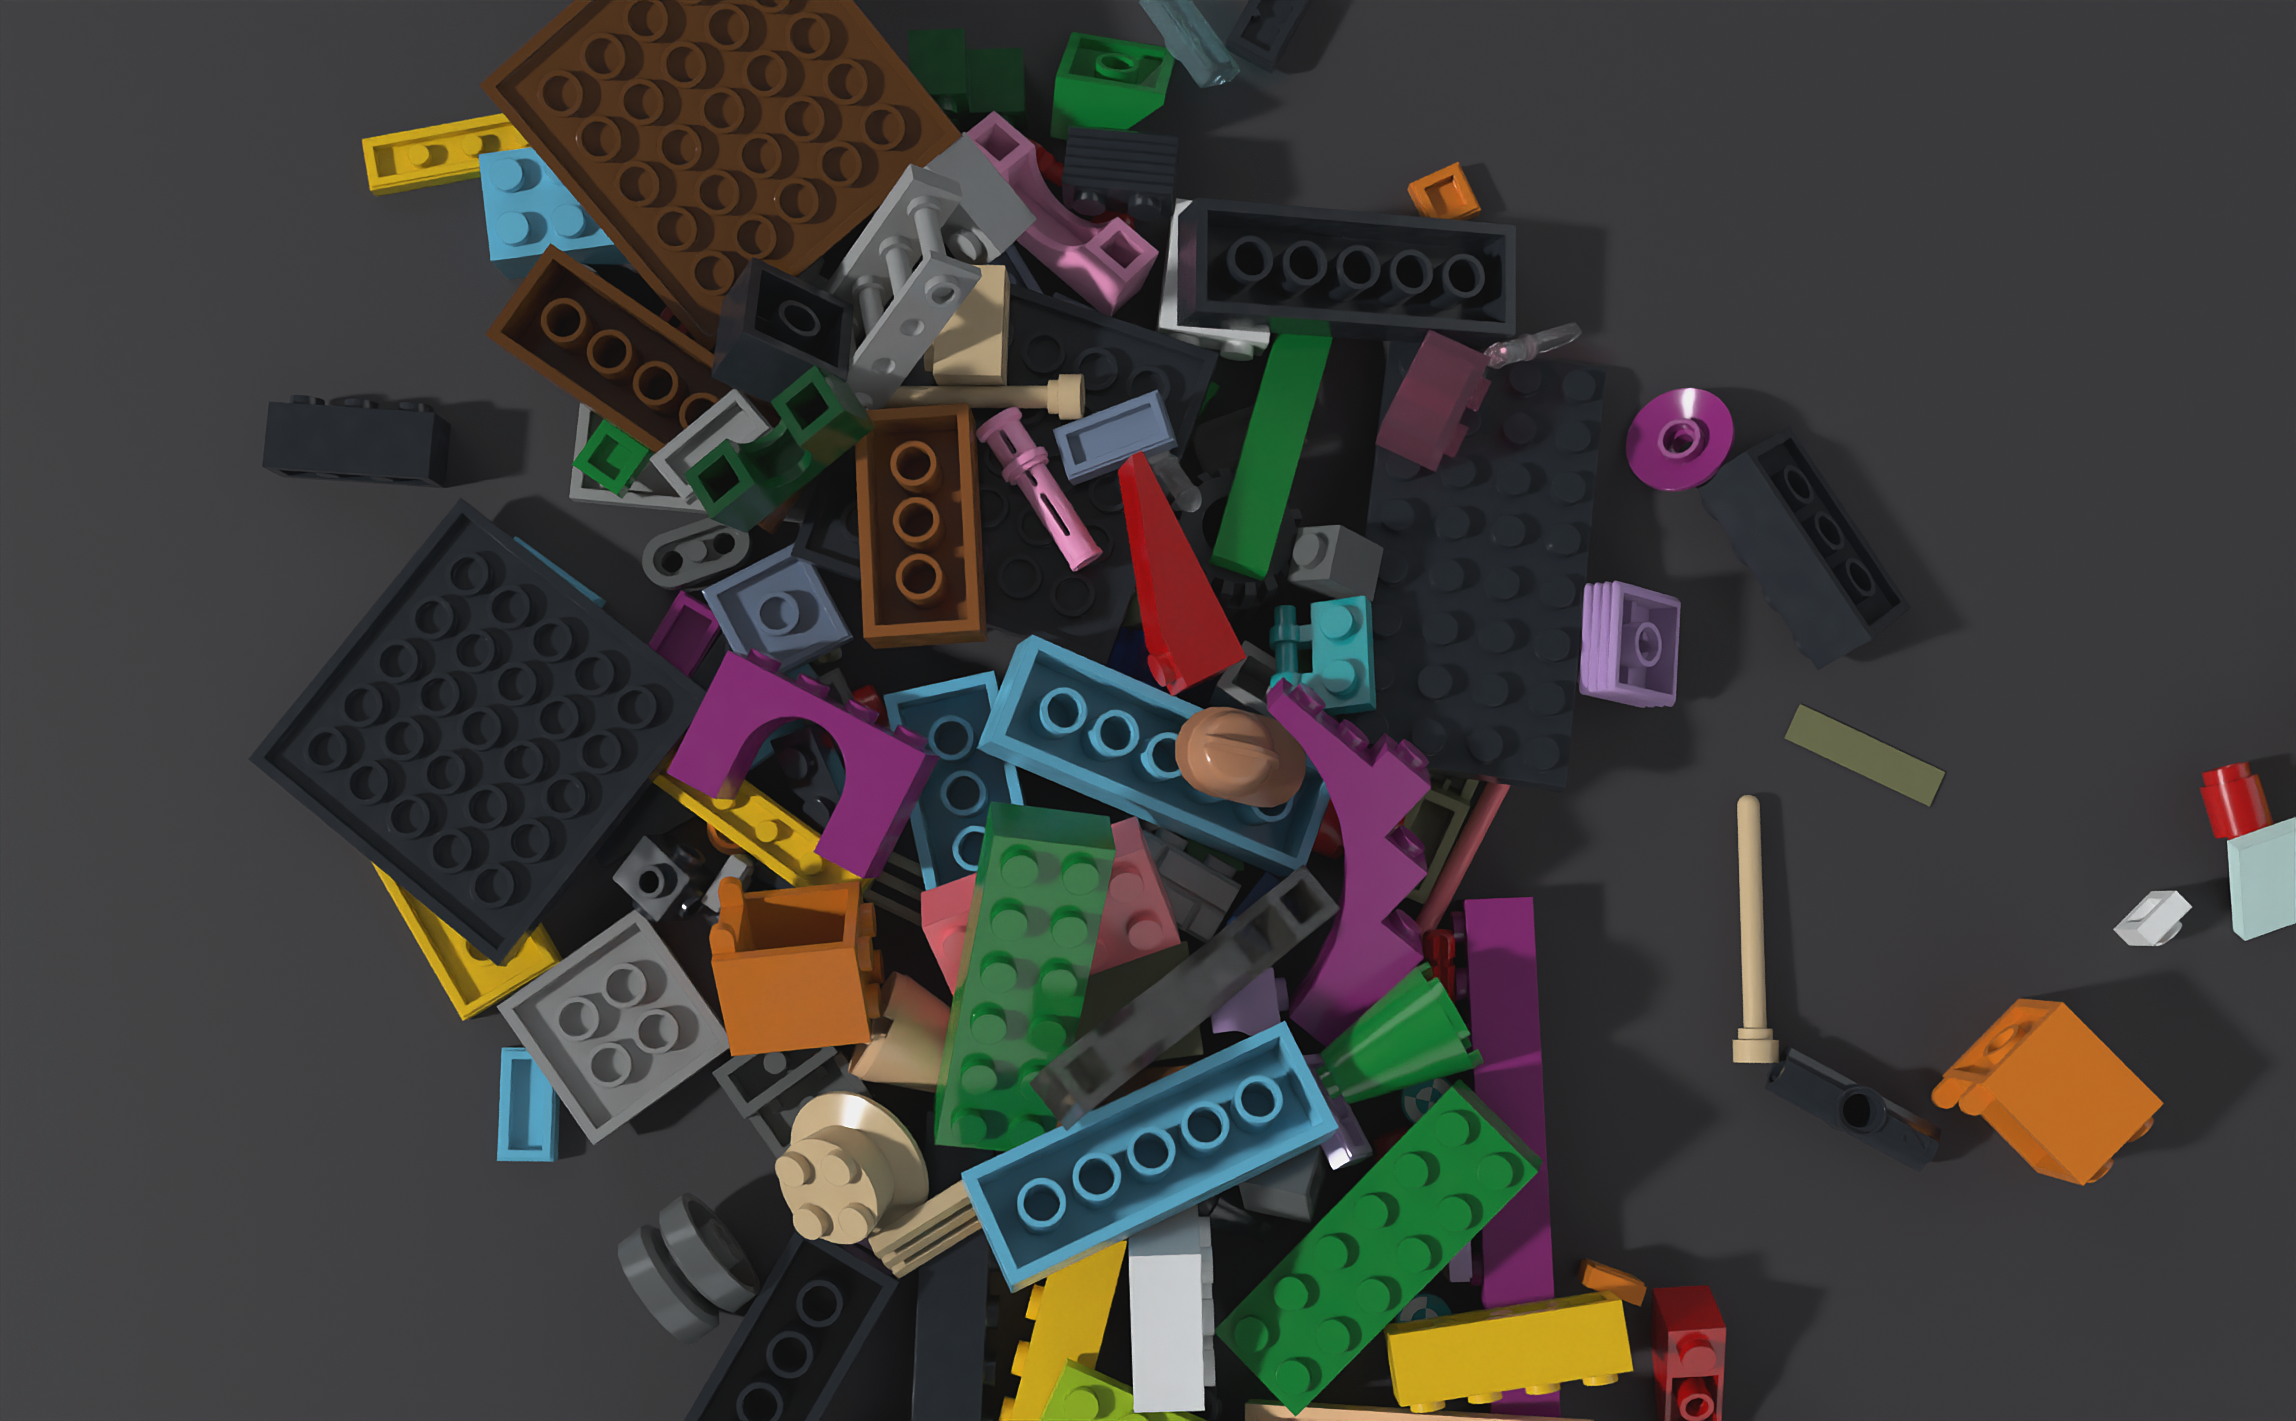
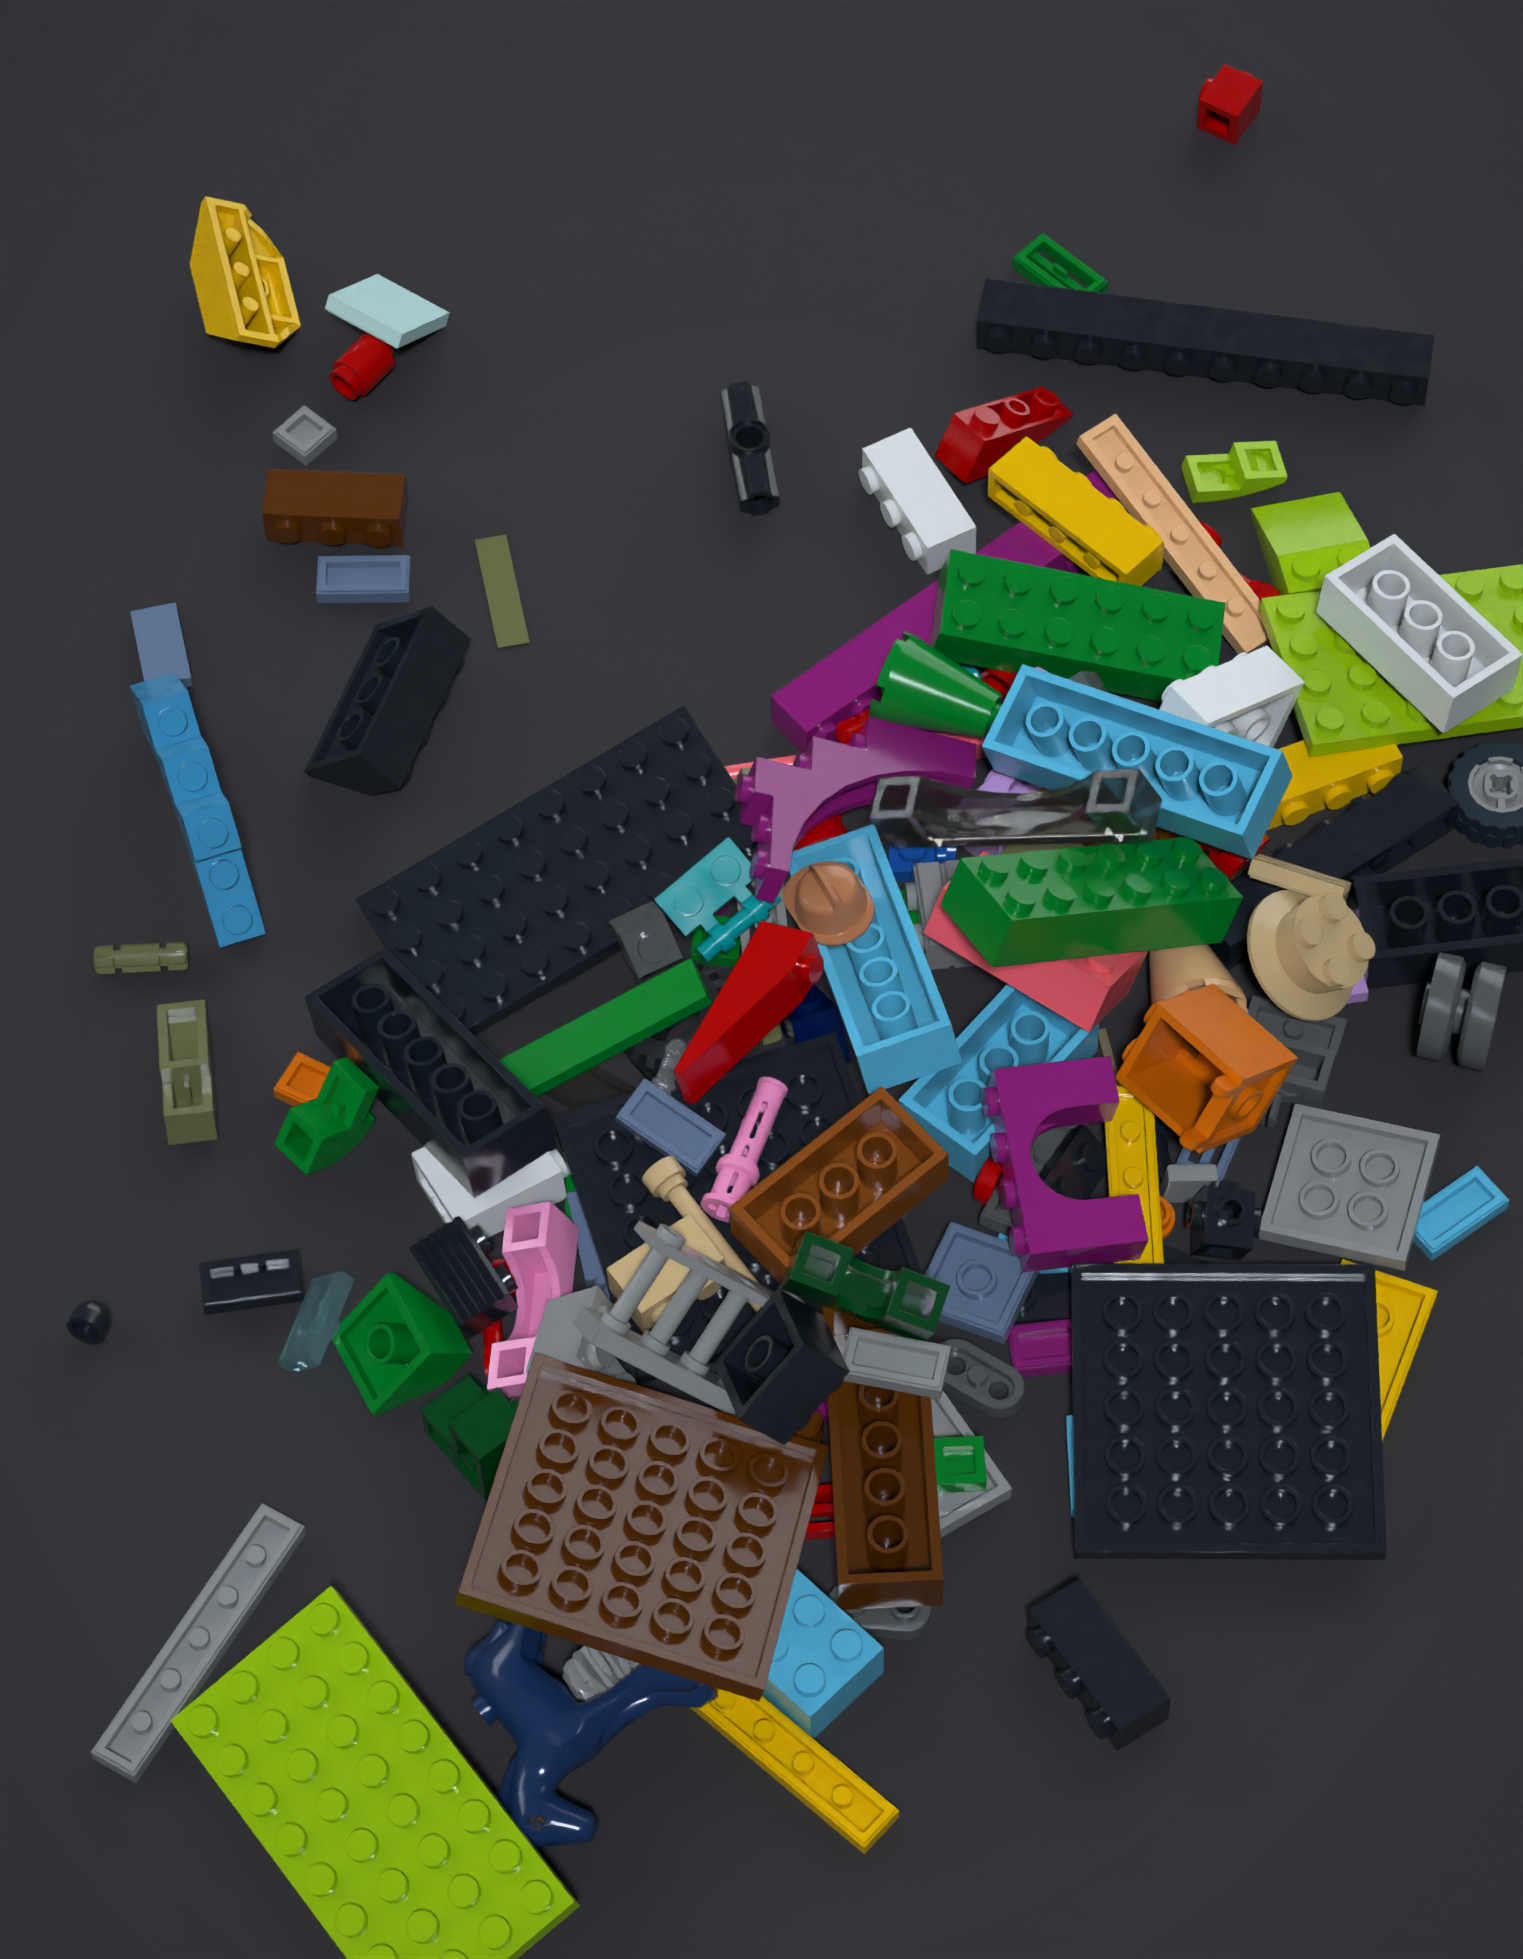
camera: 125 degrees left, 25 degrees down
(1380, 170) = (333, 1123): none -> green brick
(1433, 400) = (477, 962): clear pink brick -> none
(1528, 345) = (402, 952): clear piece -> none
(1534, 98) = (186, 1072): none -> olive slope
(1604, 1278) = (981, 507): orange tile -> none
(1629, 645) = (548, 749): lavender brick -> none
(1666, 1223) = (916, 500): none -> white brick
(1668, 424) = (399, 819): magenta dish -> none
(1688, 143) = (141, 957): none -> olive axle
(1754, 1041) = (753, 527): tan piece -> none
(1839, 275) = (200, 807): none -> dark azure arch
(1973, 632) = (363, 579): none -> sand blue tile
(2029, 389) = (161, 642): none -> sand blue tile
(2050, 1091) = (646, 348): orange container -> none
(2075, 655) = (335, 507): none -> reddish brown brick
(2154, 919) = (479, 365): white plate -> none
(2192, 696) = (305, 435): none -> light grey tile

